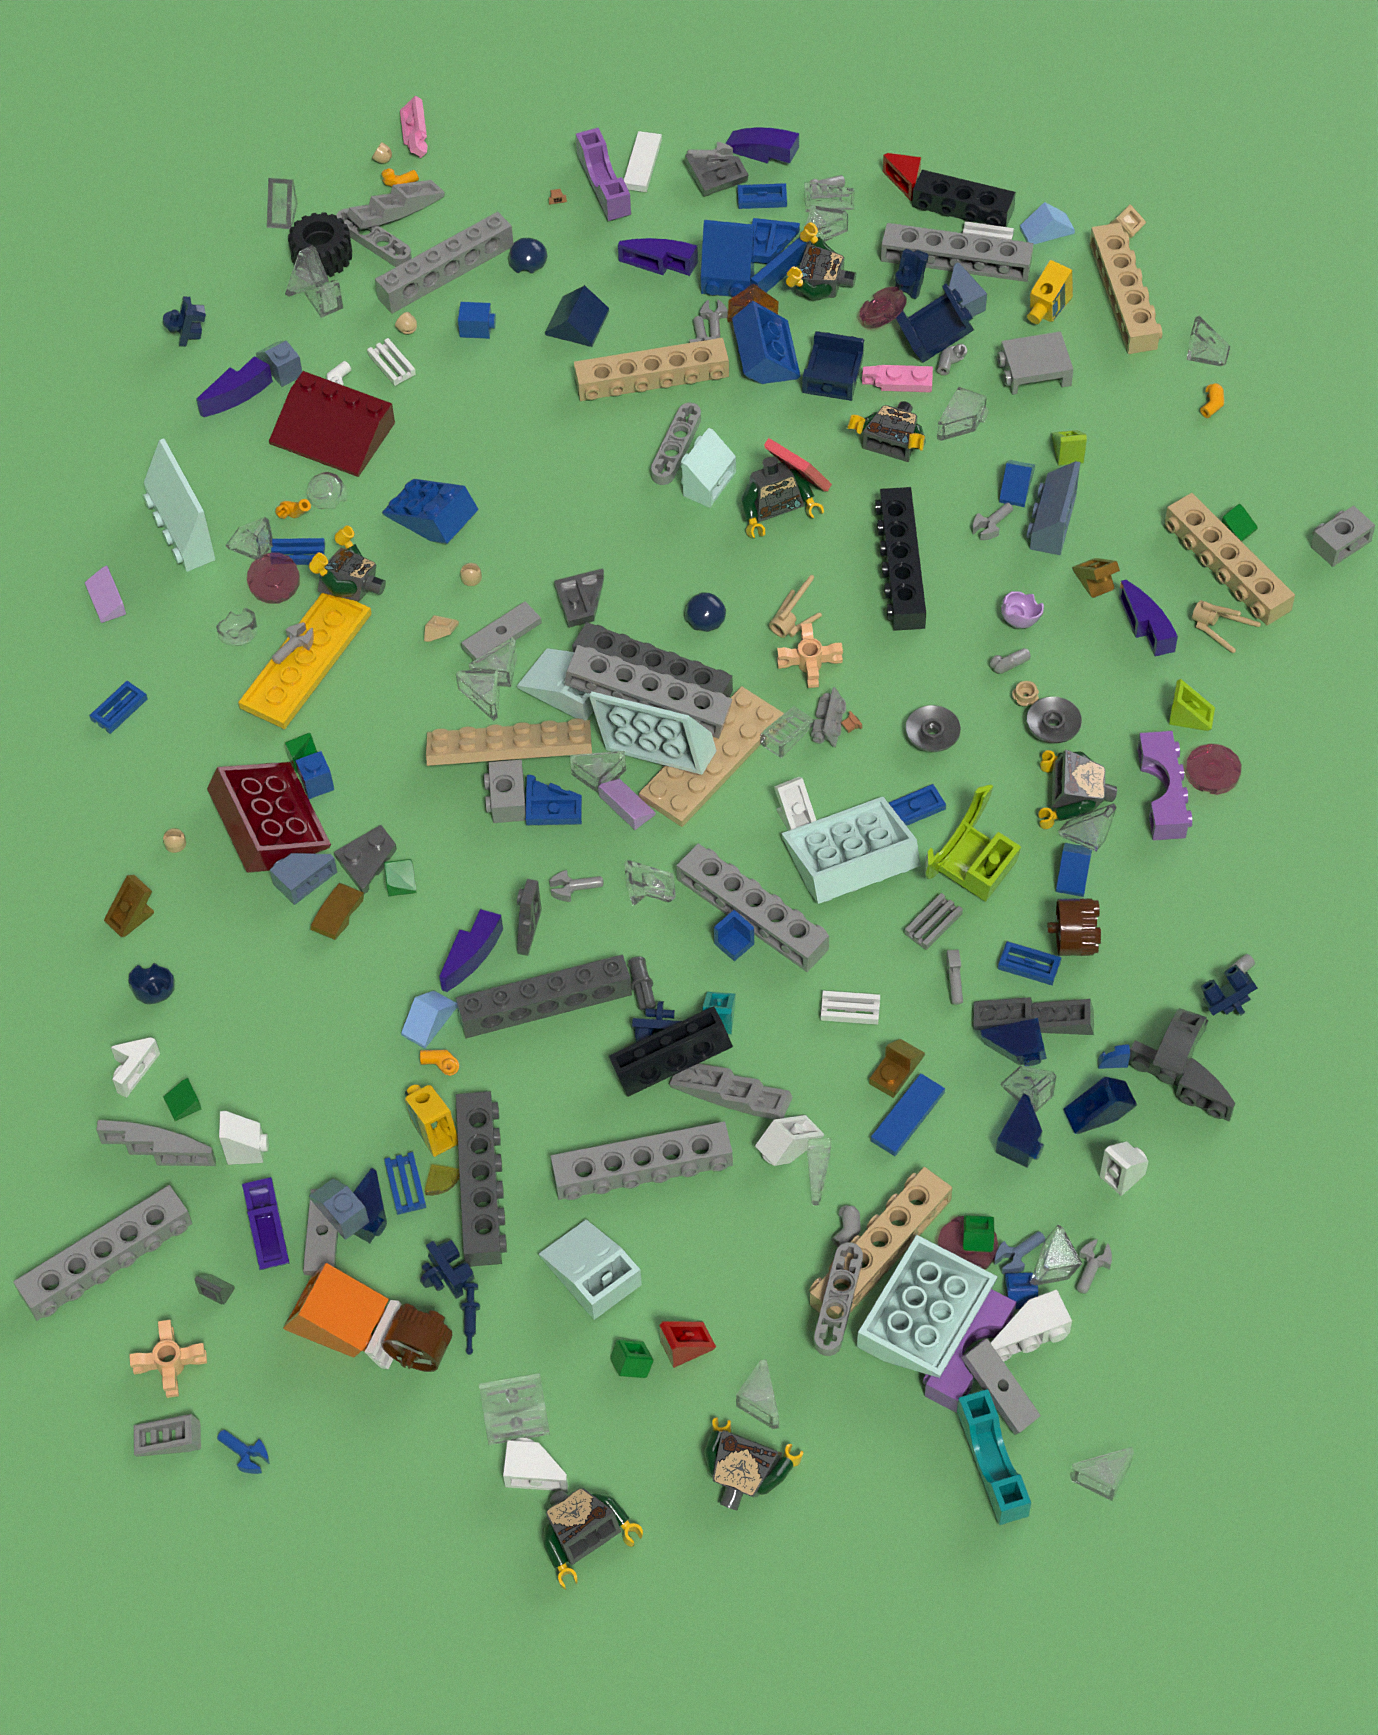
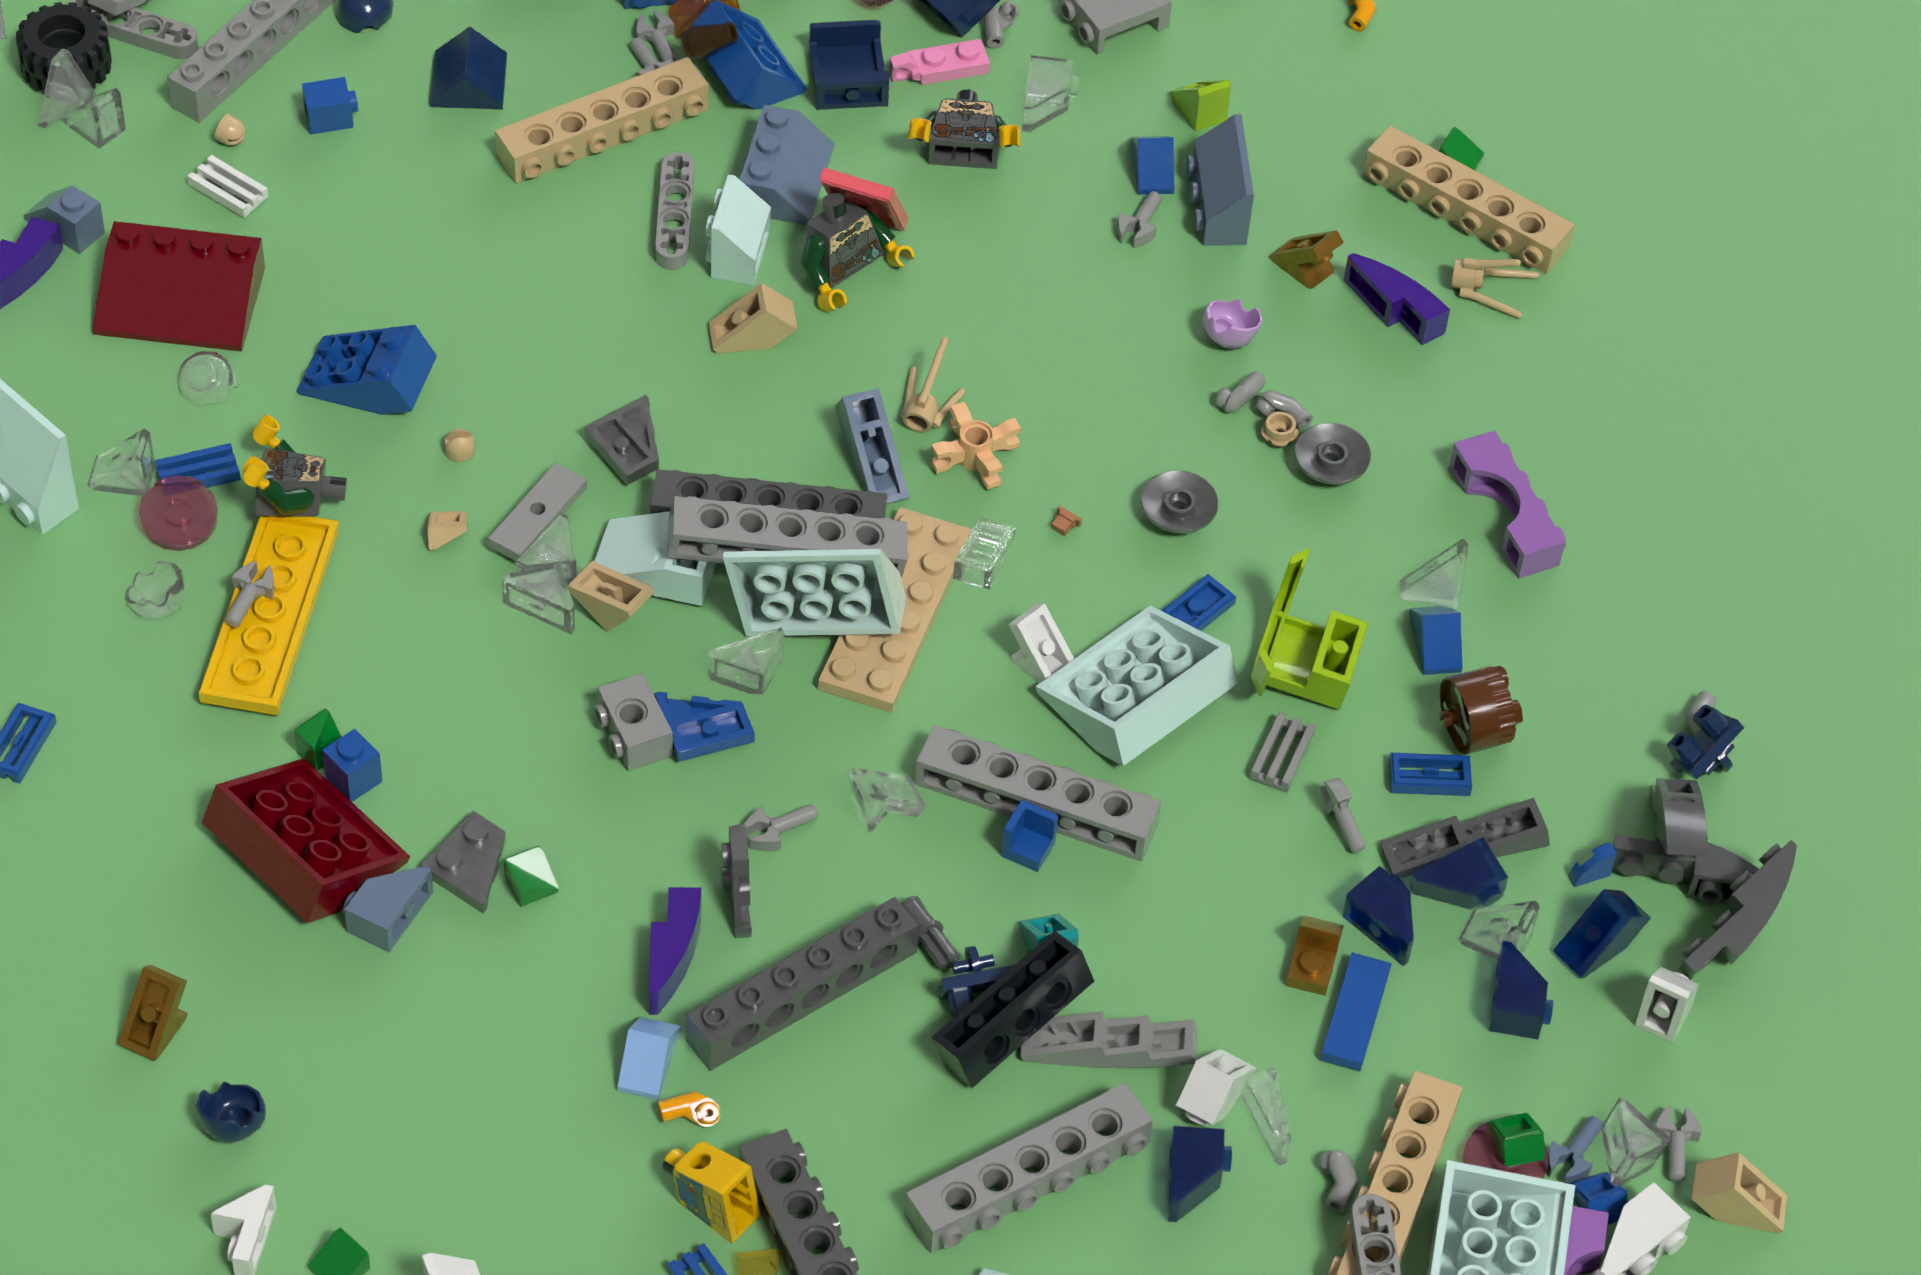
camera: 25 degrees left, 5 degrees down
(174, 840) = (178, 906): tan hinge -> none
(292, 509) = (168, 413): light orange arm -> none
(336, 911) = (458, 944): pearl gold slope -> none
(339, 372) = (159, 213): white arm -> none
(508, 742) = (611, 655): tan plate -> none
(521, 699) = (609, 594): none -> tan slope
(625, 803) = (803, 699): lavender slope -> none
(695, 534) = (753, 322): none -> tan slope
(705, 612) = (808, 421): dark blue hair -> none
(738, 328) = (705, 40): none -> dark brown cone
(739, 640) = (871, 444): none -> sand blue slope
(751, 1192) = (1195, 1167): none -> clear blue slope
(760, 417) = (787, 163): none -> sand blue slope
(831, 708) = (1040, 531): light grey hinge -> none
(850, 1003) = (1218, 887): white tile -> none
(902, 559) = (1045, 293): black brick -> none
(953, 1050) = (1383, 913): none -> clear blue slope
(1037, 676) = (1273, 400): none -> light grey arm
(1076, 786) = (1399, 530): torso -> none
(1118, 1314) = (1739, 1193): none -> tan slope
(1191, 709) = (1498, 399): lime slope -> none
(1213, 768) = (1559, 468): clear pink tile -> none
(1213, 1113) = (1754, 903): none -> dark grey slope
(1342, 535) = (1597, 139): light grey brick -> none

